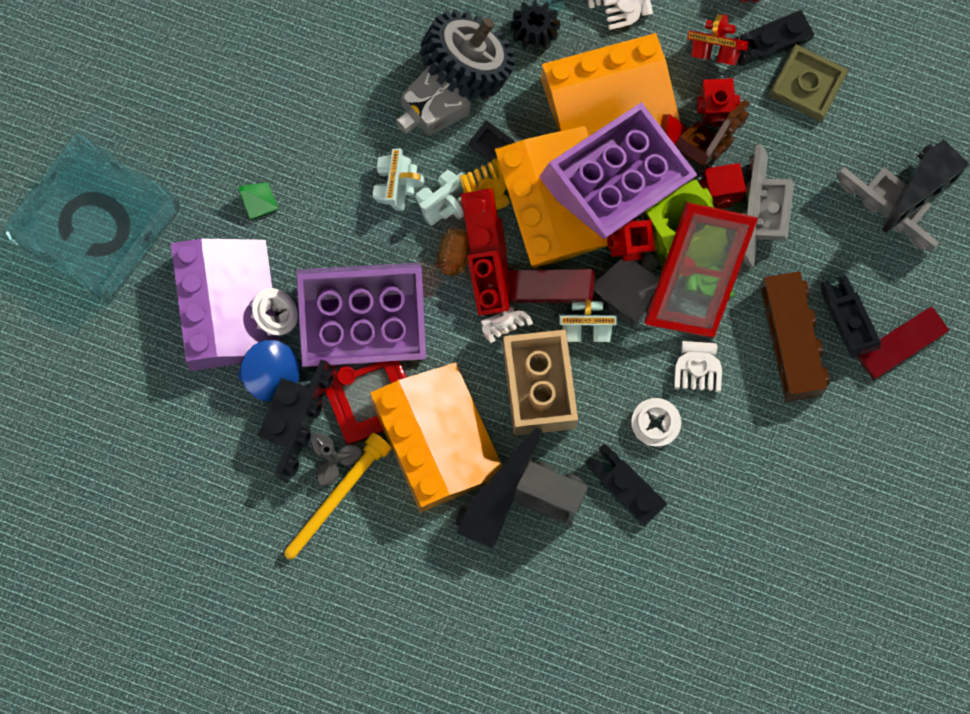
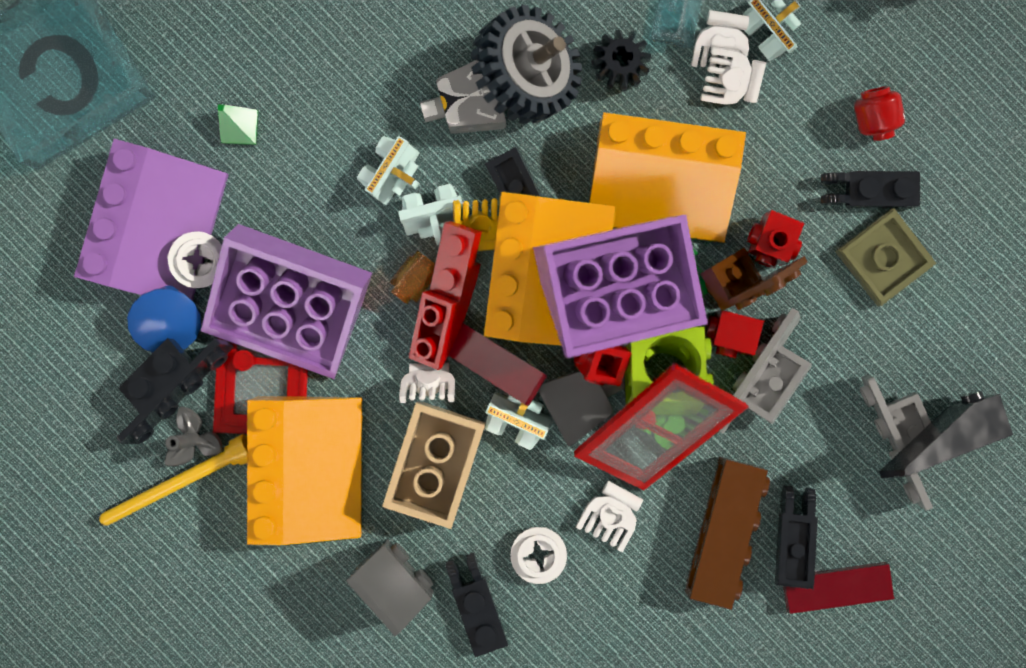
camera: 30 degrees right, 15 degrees up
(490, 507) = (325, 568): black slope -> none
(672, 127) = (710, 250): red tile -> none
(729, 47) = (819, 180): red hips -> none

